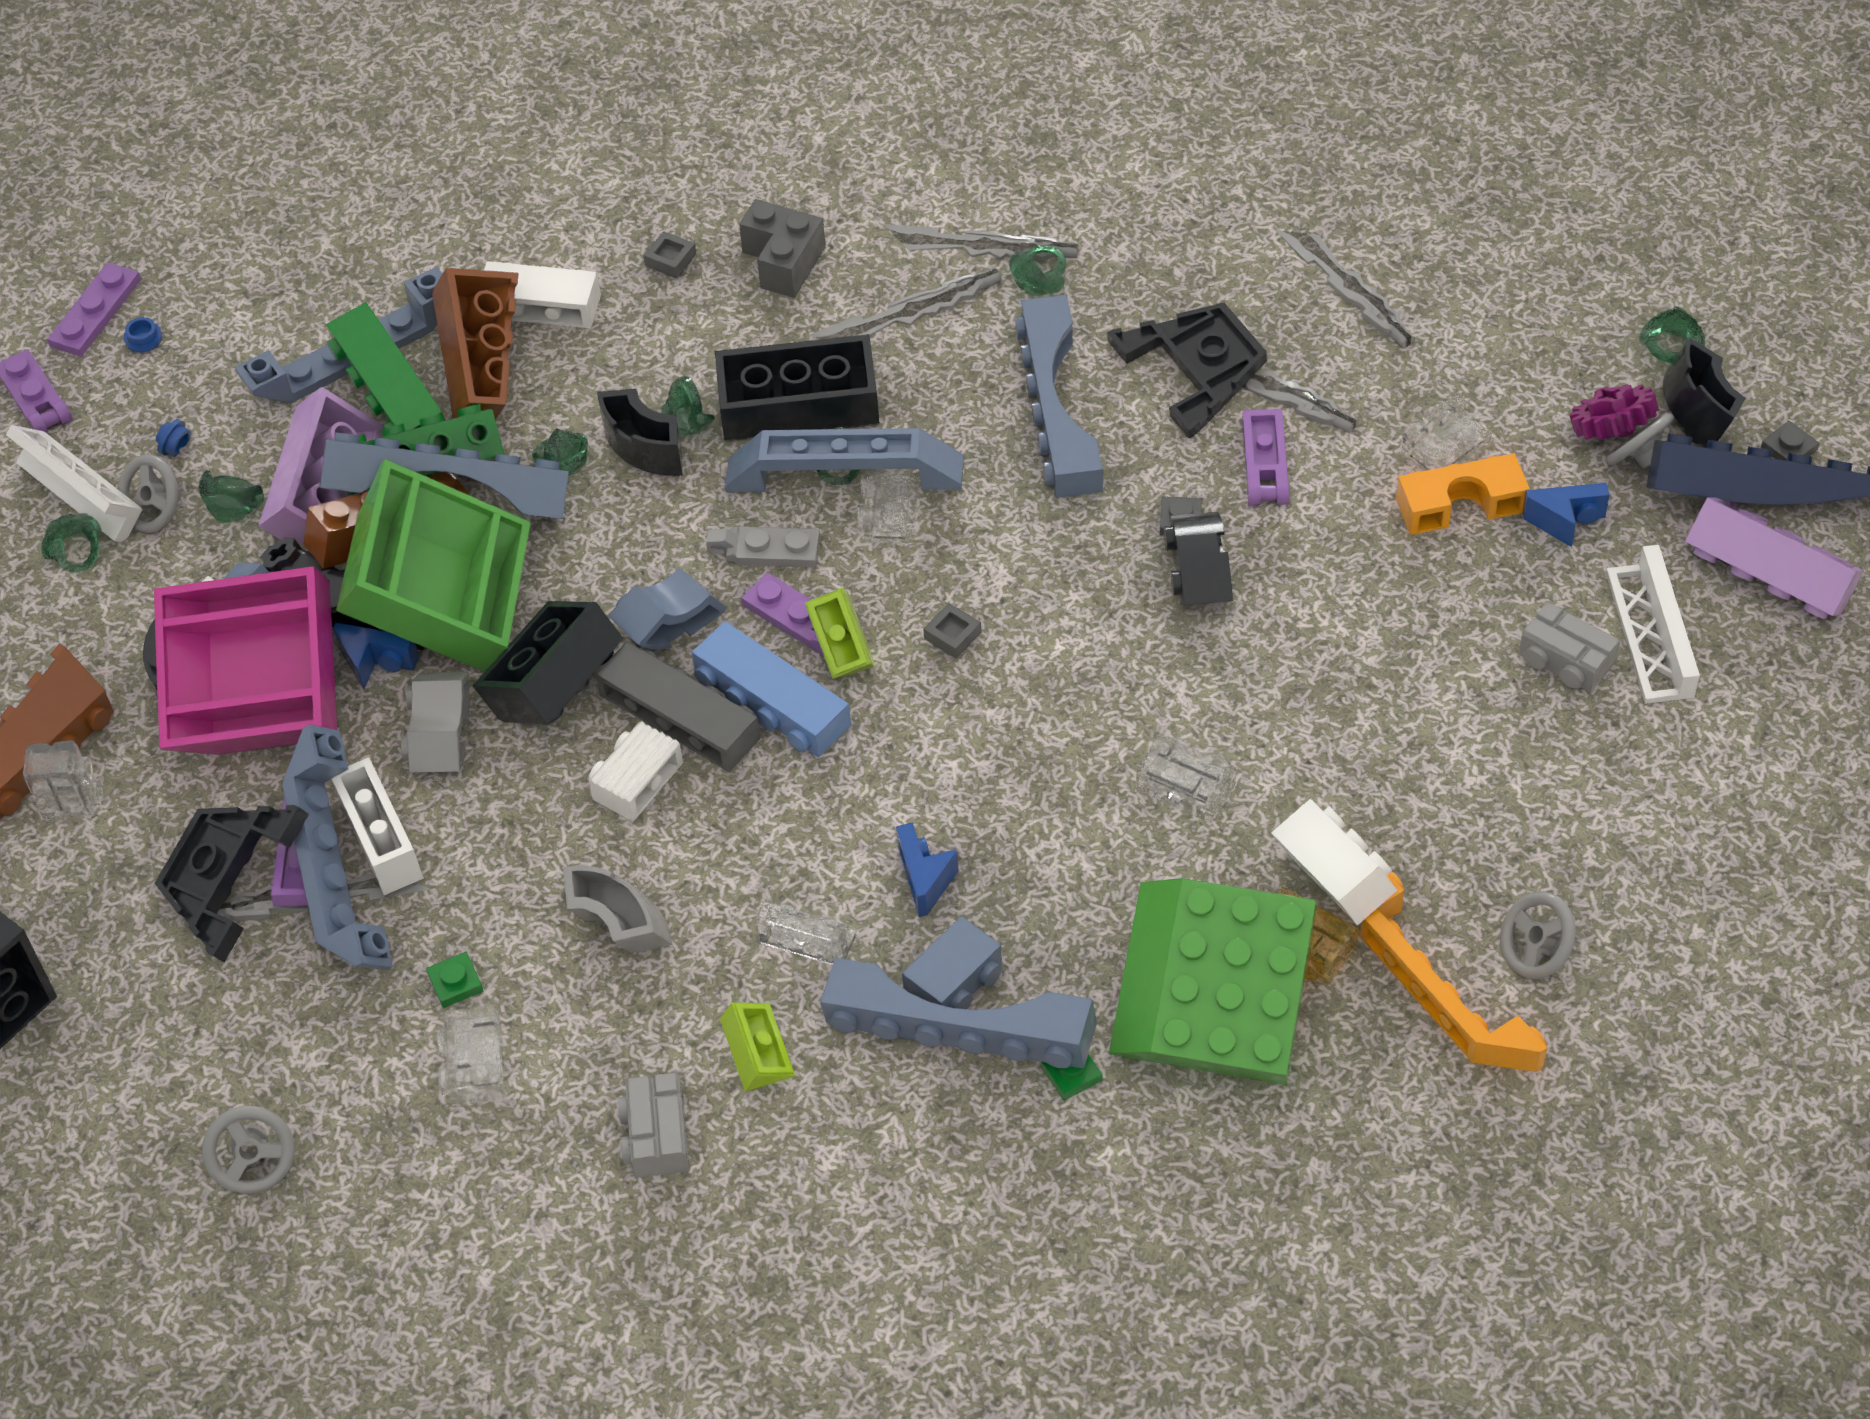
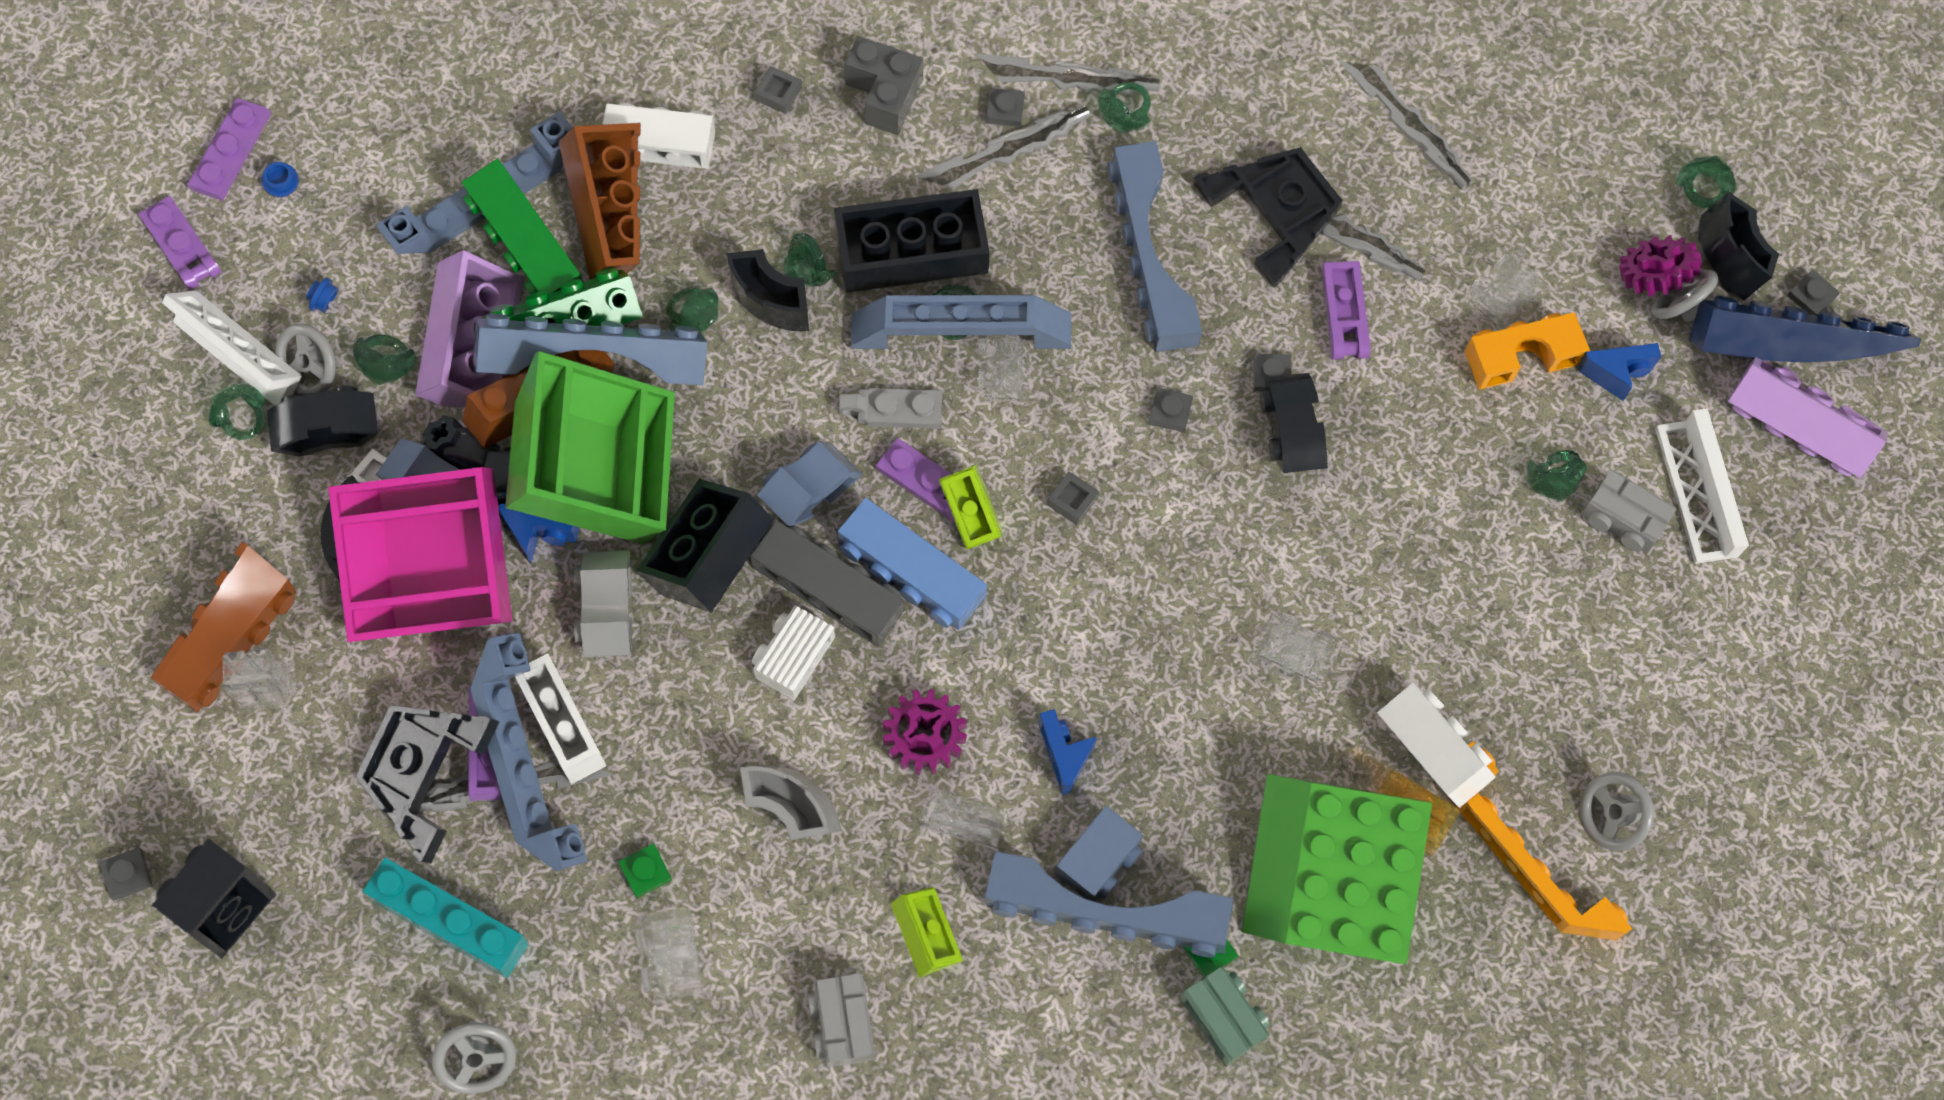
camera: 10 degrees left, 15 degrees up
(158, 550) = (322, 421): none -> black brick
(234, 1015) = (446, 917): none -> teal brick
(769, 850) = (934, 744): none -> magenta gear
(910, 271) = (1005, 107): none -> dark grey plate
(1067, 550) = (1170, 409): none -> dark grey plate
(1081, 1130) = (1226, 1015): none -> sand green brick
(1489, 615) = (1560, 481): none -> clear green piece

